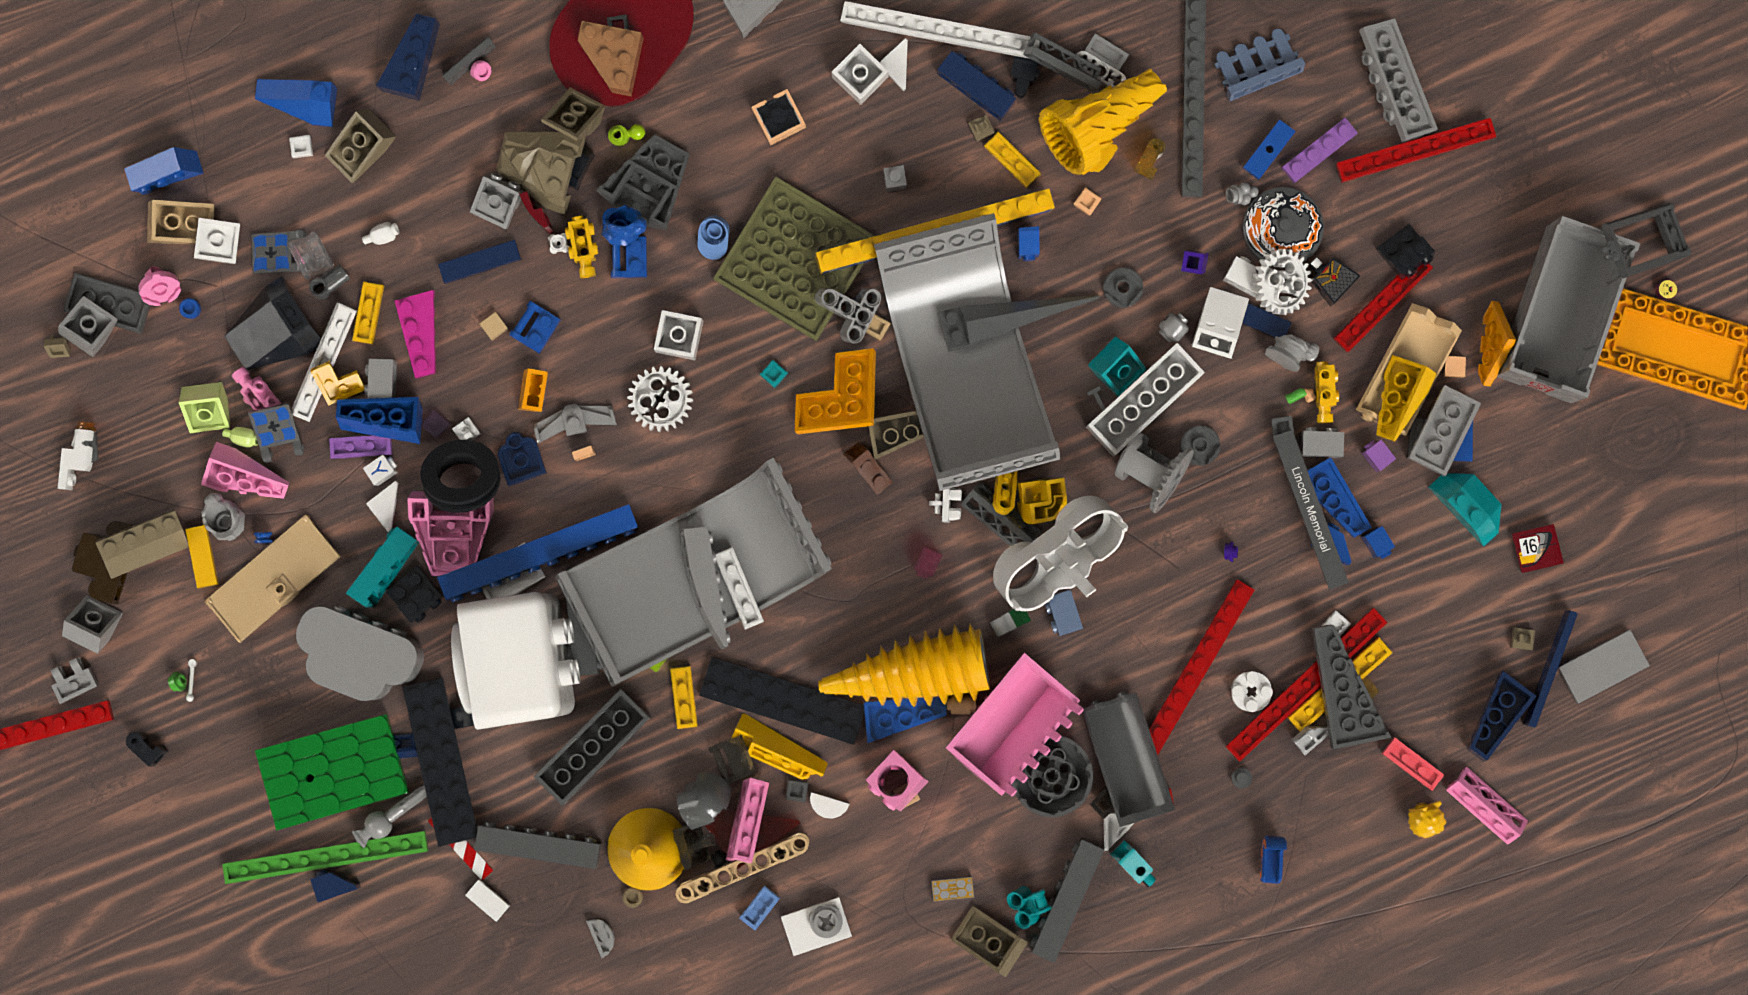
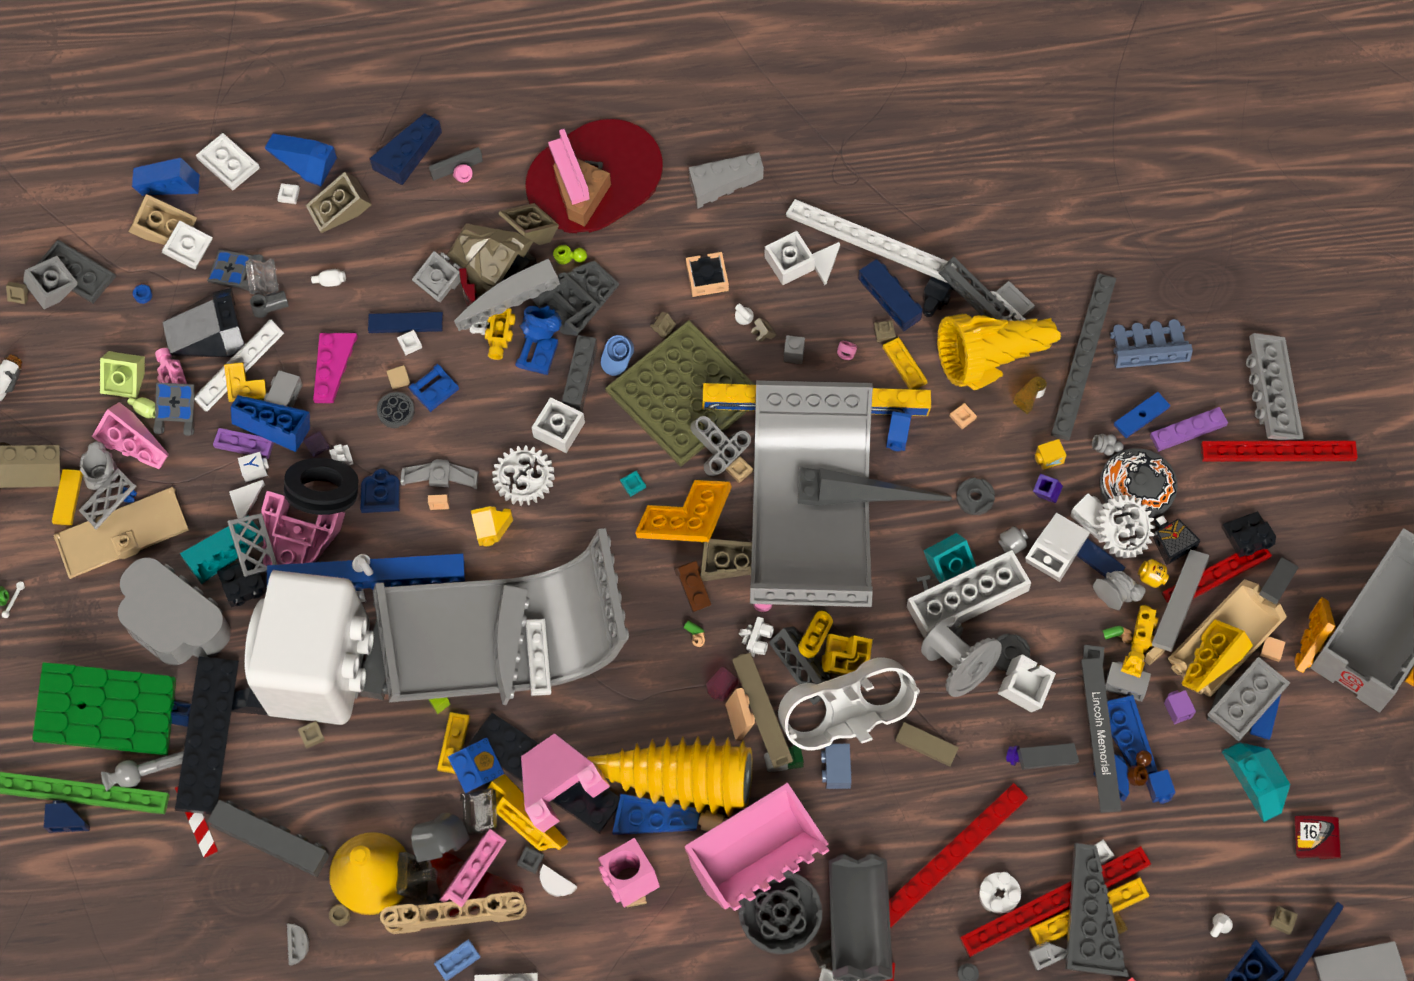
camera: 15 degrees right, 20 degrees down
(158, 286) = (123, 267): bright pink tile -> none
(221, 128) = (227, 161): none -> white plate
(239, 533) = (124, 480): none -> light grey window
(368, 313) = (293, 338): yellow tile -> none
(417, 541) = (262, 532): none -> light grey window
(487, 900) = (202, 877): white tile -> none
(491, 283) = (409, 342): none -> white tile
(504, 363) = (395, 410): none -> tile
(532, 390) = (412, 437): light orange brick -> none
(532, 548) = (361, 563): none -> white plate
(543, 733) = (311, 734): none -> dark tan tile
(583, 204) = (509, 293): none -> light grey slope
(592, 746) = (352, 760): dark grey brick -> none
(597, 43) = (569, 169): none -> bright pink fence
(645, 464) = (490, 524): none -> yellow slope
(681, 270) = (580, 372): none -> dark grey brick
(715, 717) = (476, 765): none -> blue slope
(751, 188) = (663, 325): none -> dark tan tile
(791, 704) = (549, 772): none -> bright pink wedge
(830, 152) = (743, 315): none -> white plate
(857, 162) = (765, 329): none -> dark tan tile
(888, 516) = (697, 633): none -> arm
(948, 161) = (846, 347): none -> bright pink tile
(955, 591) = (739, 713): none -> light nougat tile
(975, 580) = (762, 710): none -> dark tan brick
(1143, 563) = (927, 744): none -> dark tan tile
(1187, 221) = (1050, 454): none -> yellow brick
(1226, 477) = (1024, 686): none -> white piece
(1264, 544) = (1048, 756): none -> dark grey tile
(1320, 322) = (1153, 573): none -> yellow head
(1325, 430) = (1133, 664): none -> yellow brick
(1342, 406) = (1153, 654): none -> tan tile
(1355, 345) = (1180, 600): none -> light grey tile
(1355, 538) = (1138, 774): none -> reddish brown plate
(1446, 295) = (1278, 580): none -> dark grey tile
(1466, 660) = (1222, 924): none -> white plate

